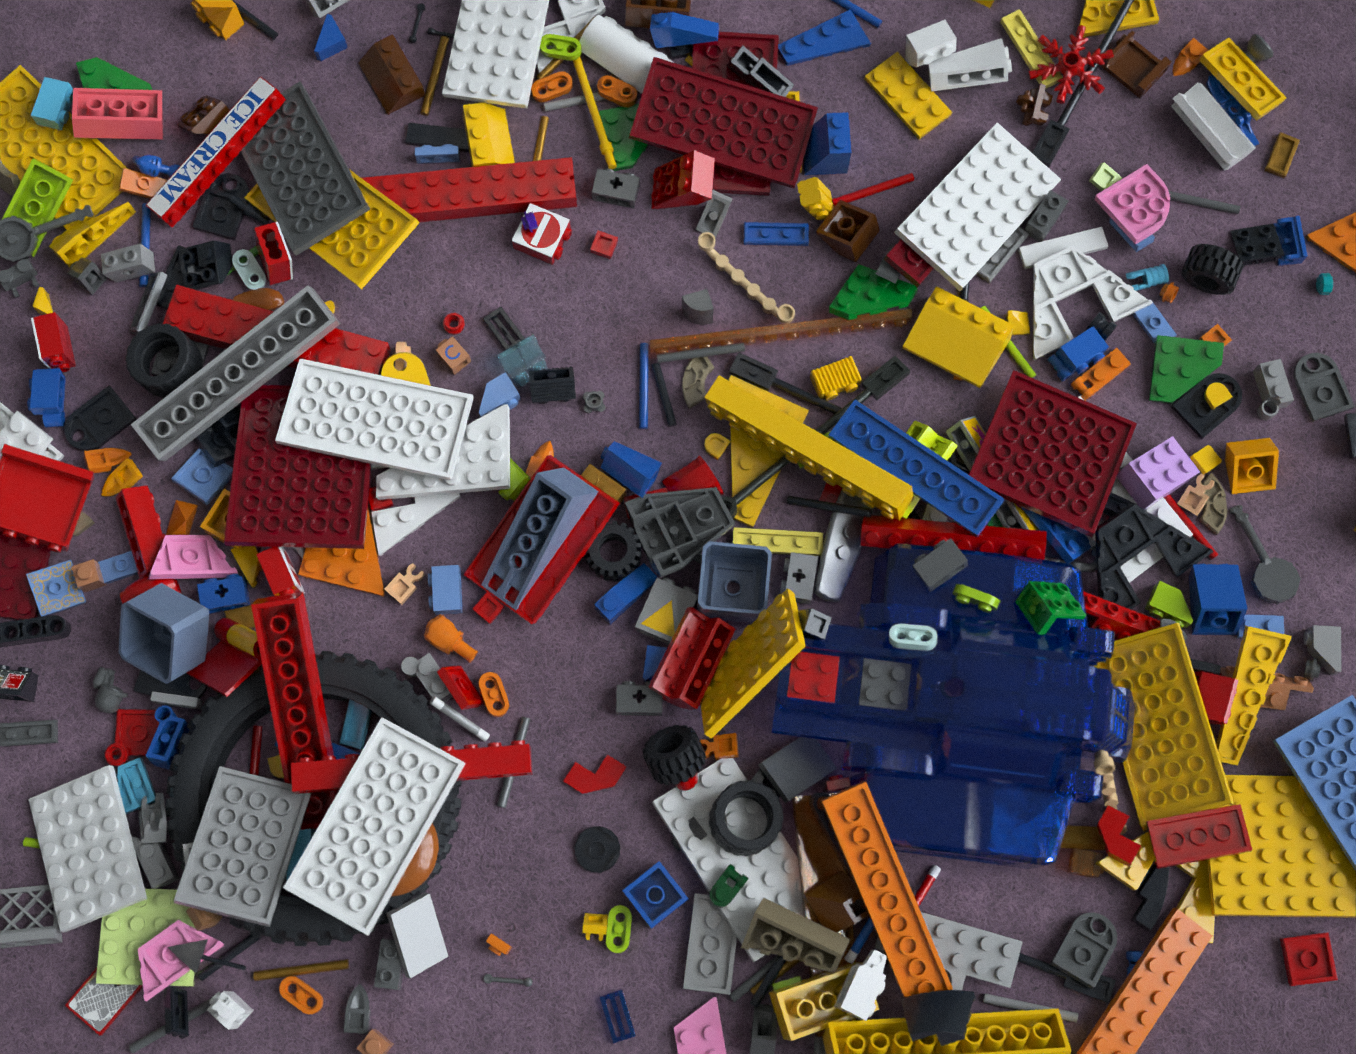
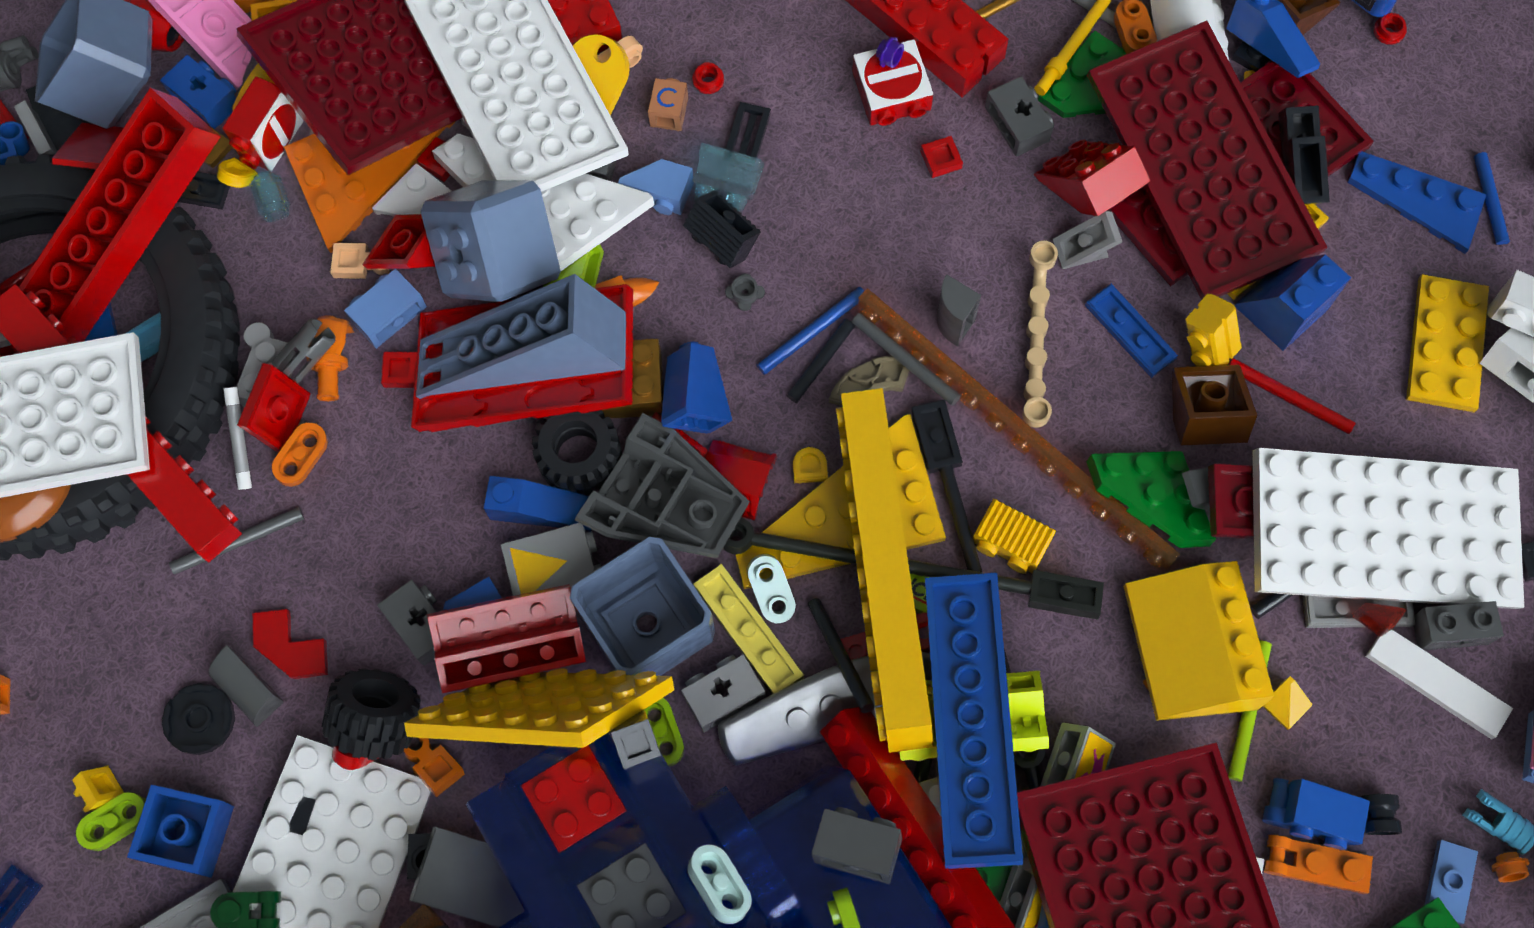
camera: 55 degrees right, 5 degrees down
(323, 603) = (270, 196): none -> clear light blue brick
(427, 547) = (401, 245): none -> red slope
(445, 645) = (307, 346): none -> dark grey arm
(468, 502) = (491, 240): none -> sand blue plate
(600, 812) = (244, 685): none -> dark grey brick
(765, 798) = (311, 838): black tyre -> none
(768, 513) = (771, 589): none -> light aqua plate
(1015, 247) = (1378, 617): none -> clear red slope
(1064, 276) = (1408, 714): white wing -> none

